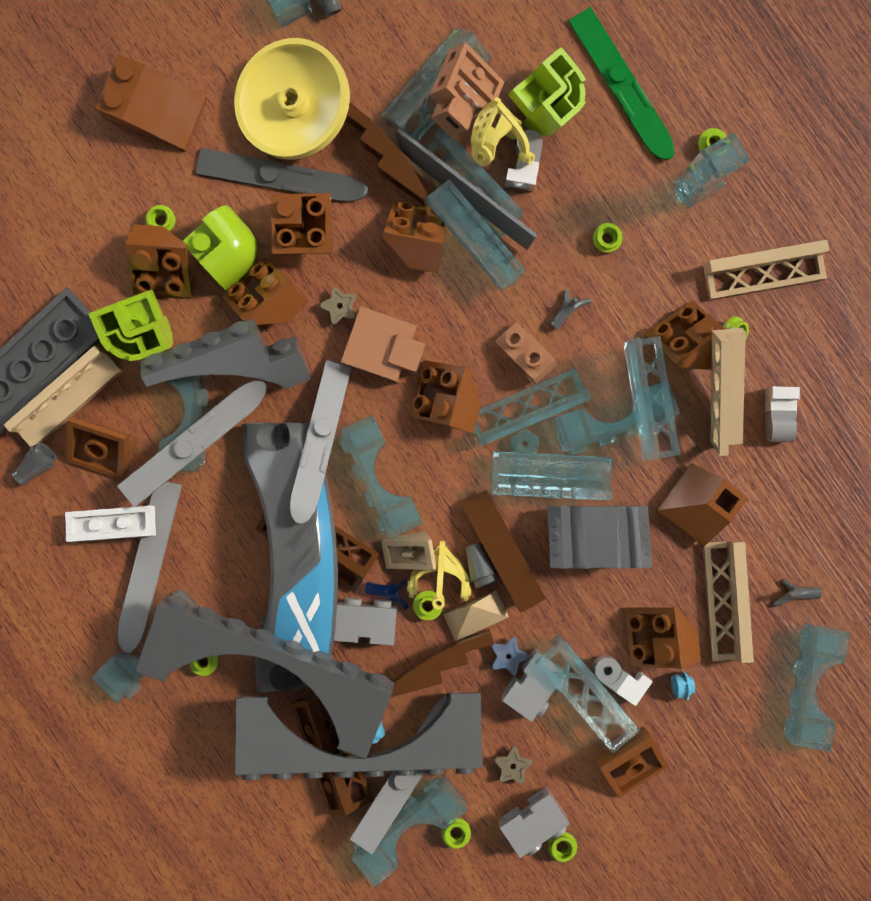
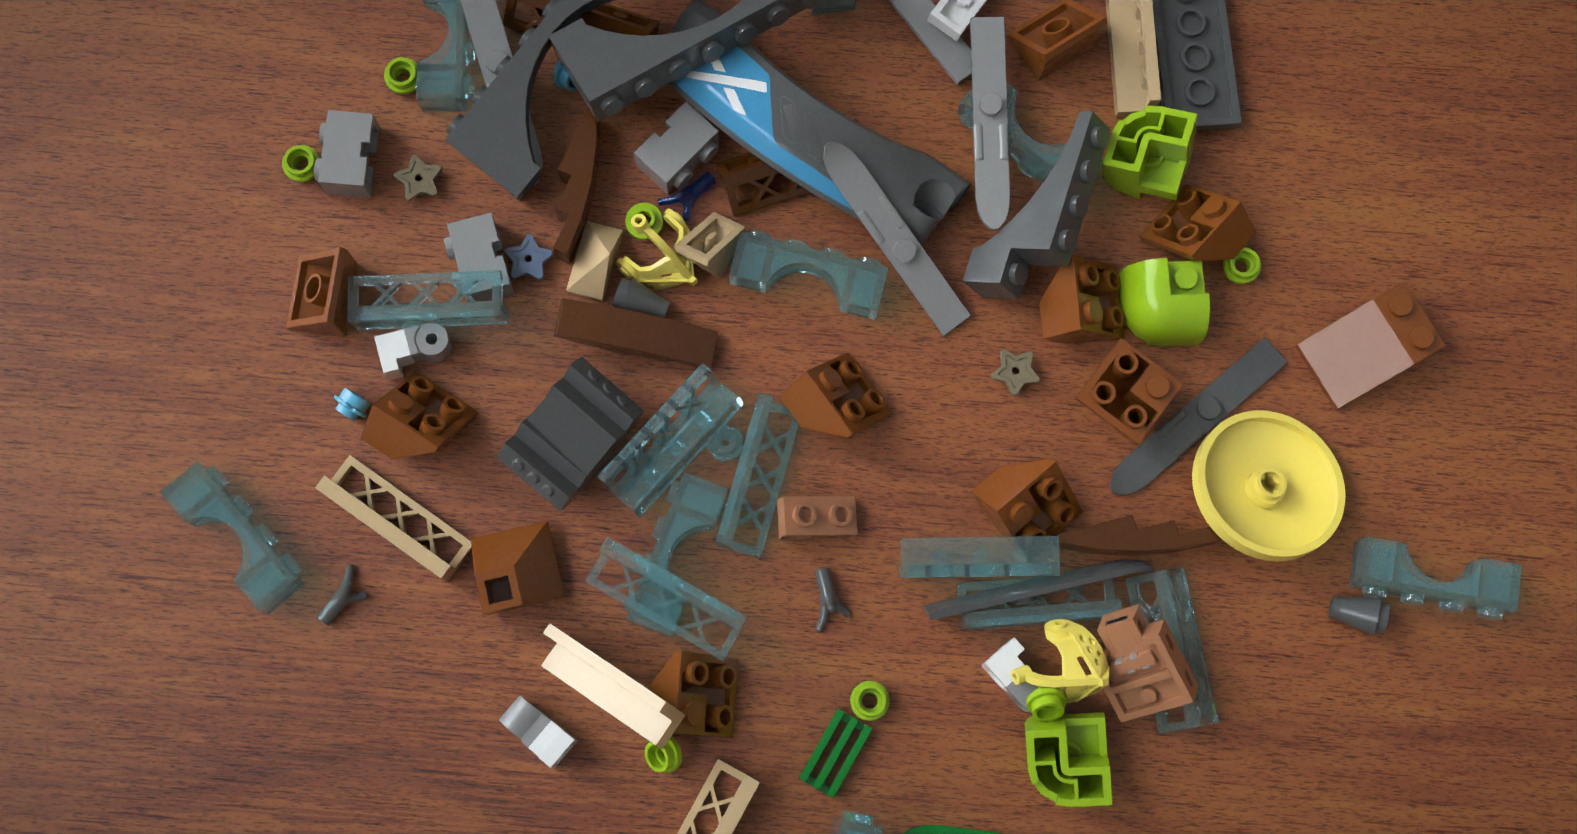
camera: 120 degrees right, 10 degrees down
(382, 345) = (939, 380): nougat piece -> none
(533, 128) = (1046, 703): none -> lime plate
(677, 230) = (851, 724): none -> green tile

